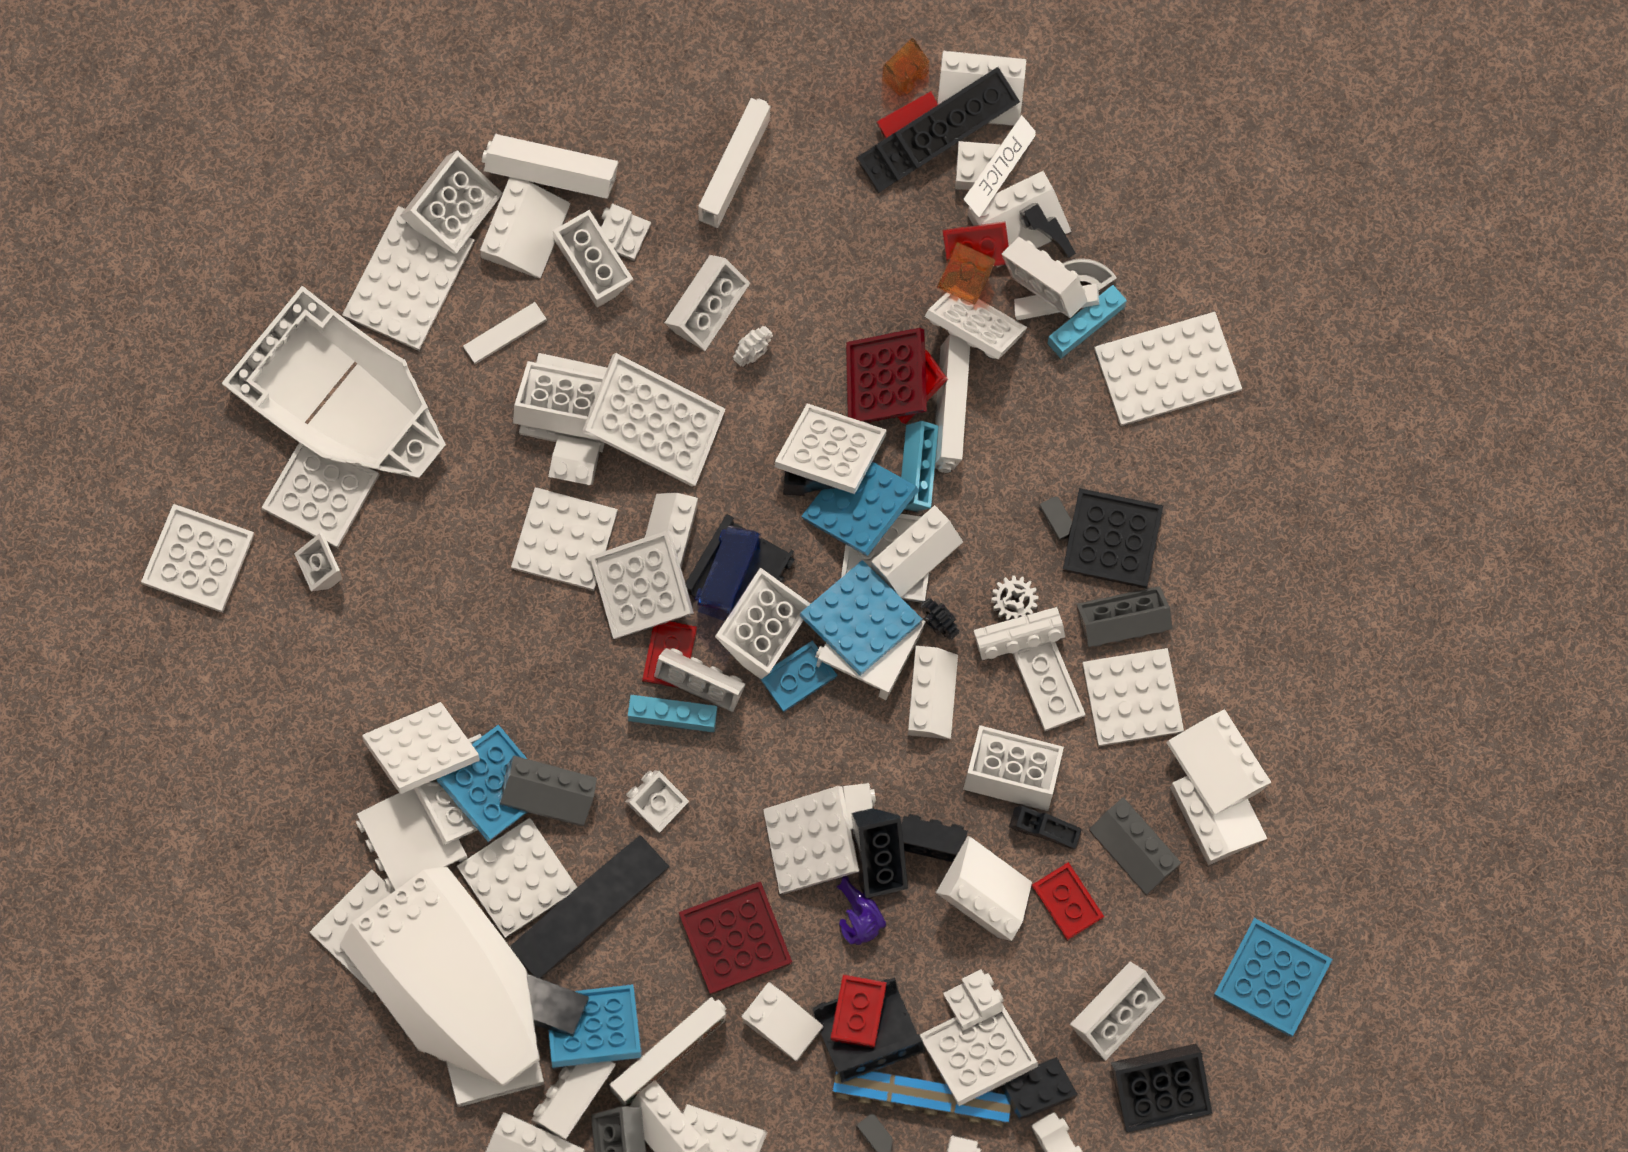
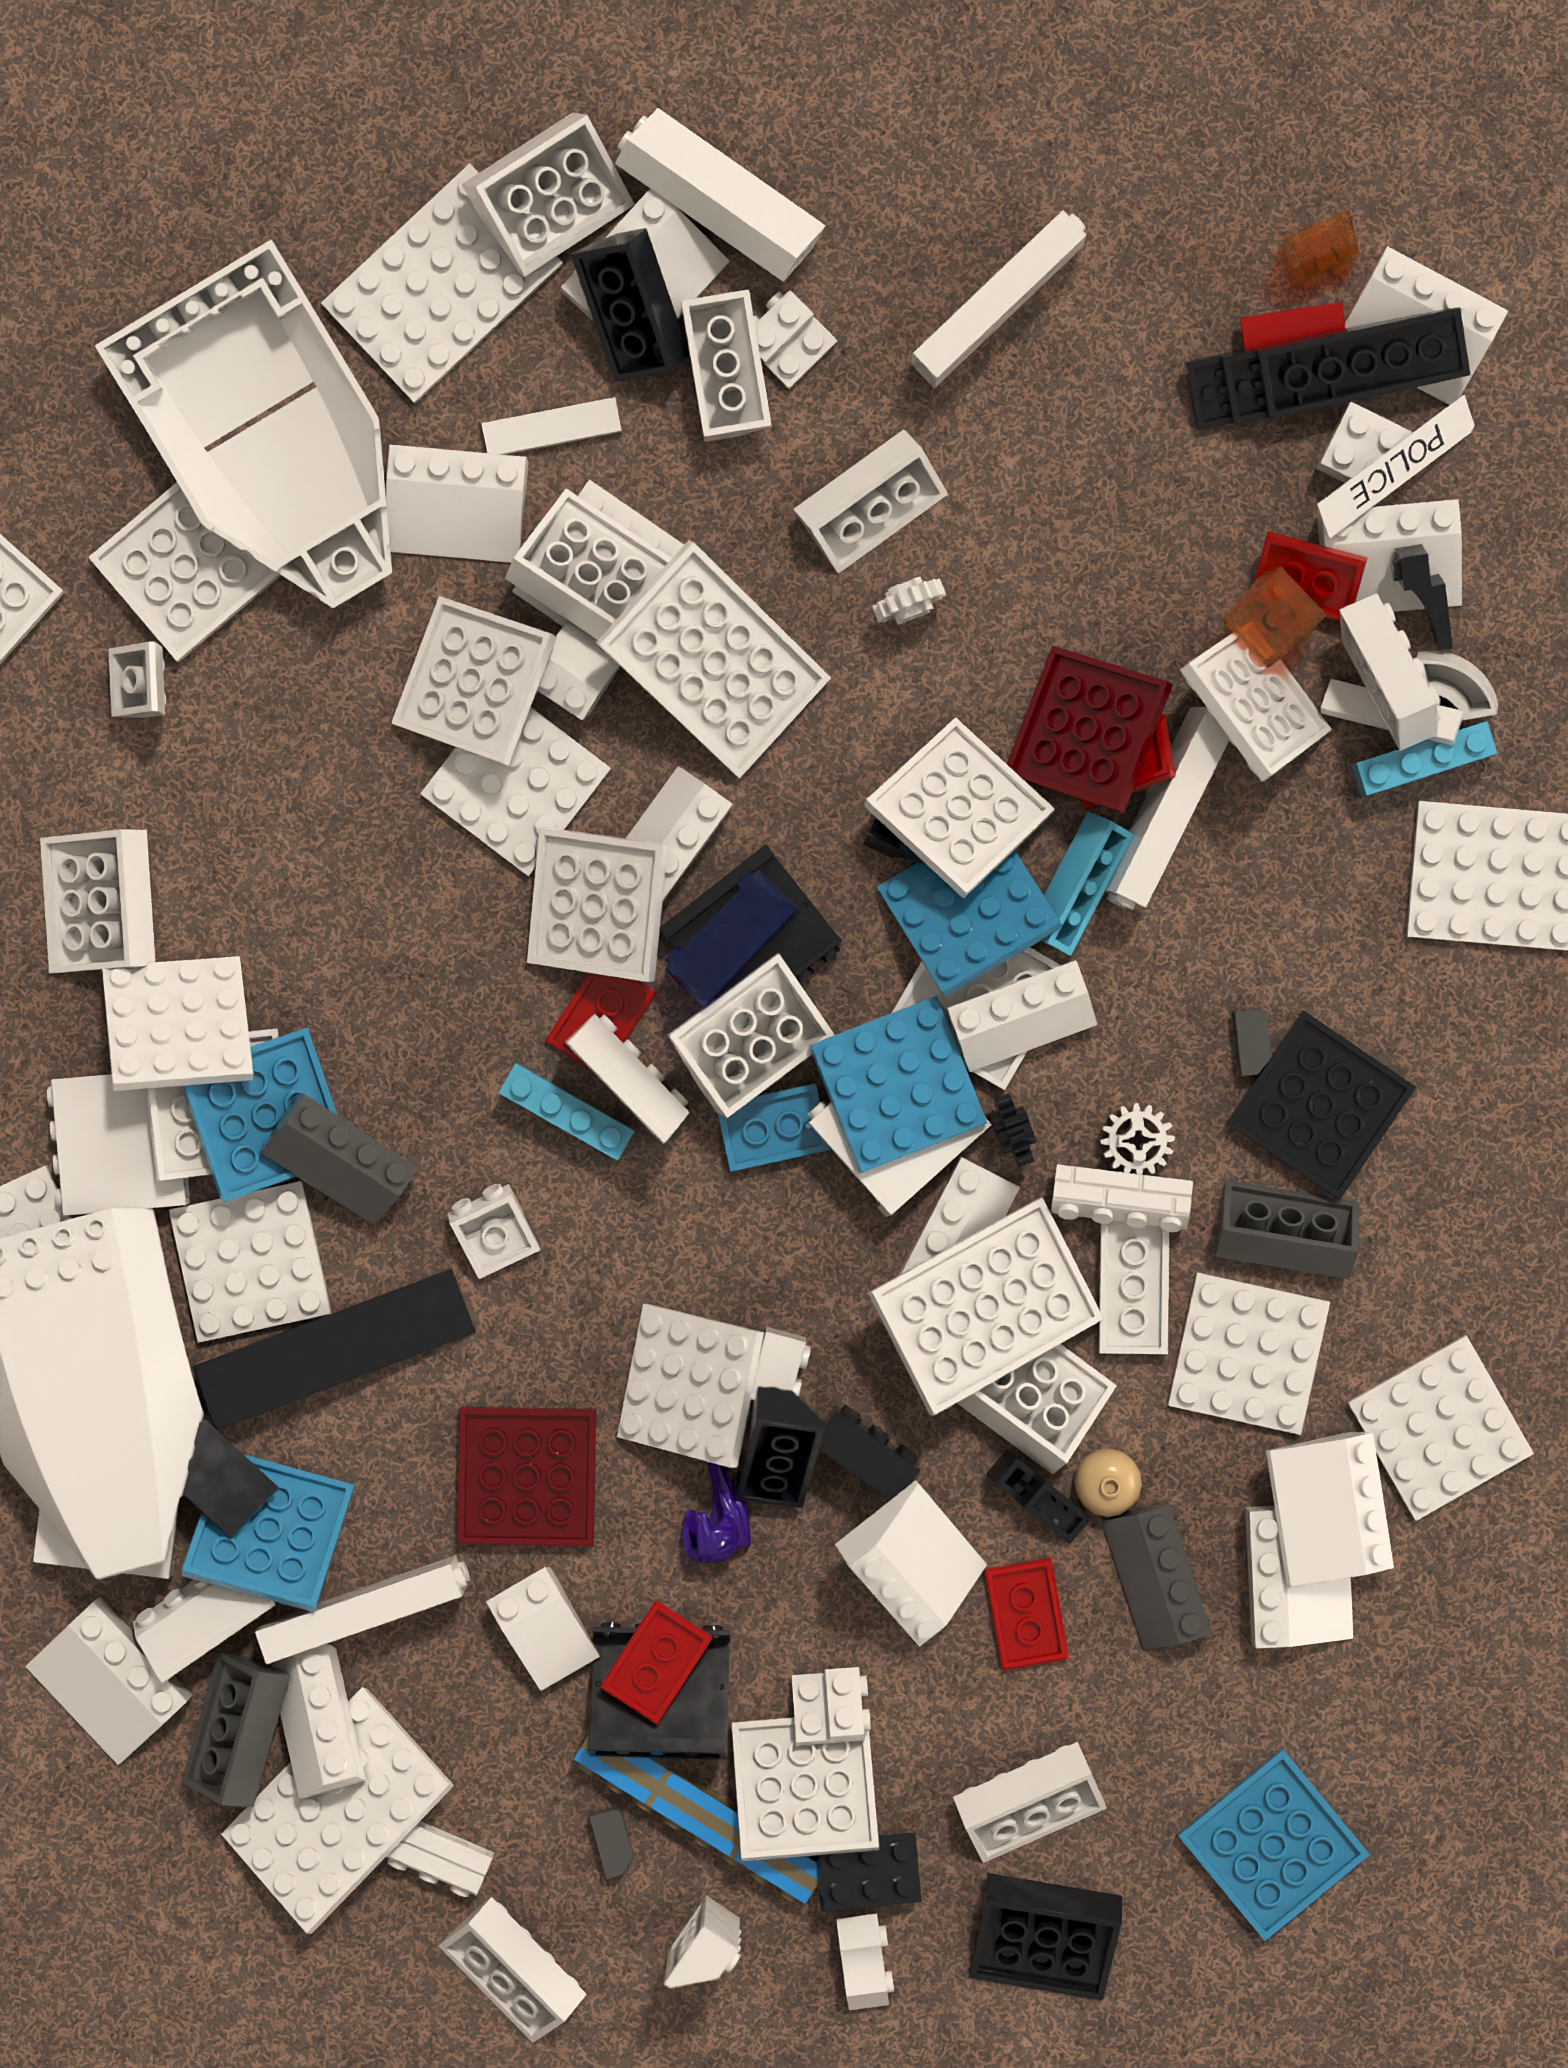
camera: 25 degrees right, 15 degrees up
(342, 701) = (97, 900): none -> white slope
(467, 394) = (455, 503): none -> white slope
(517, 487) = (474, 680): none -> white plate
(524, 244) = (630, 305): none -> black slope
(966, 723) = (985, 1306): none -> white plate
(1082, 804) = (1107, 1482): none -> tan cylinder
(1264, 695) = (1440, 1427): none -> white plate

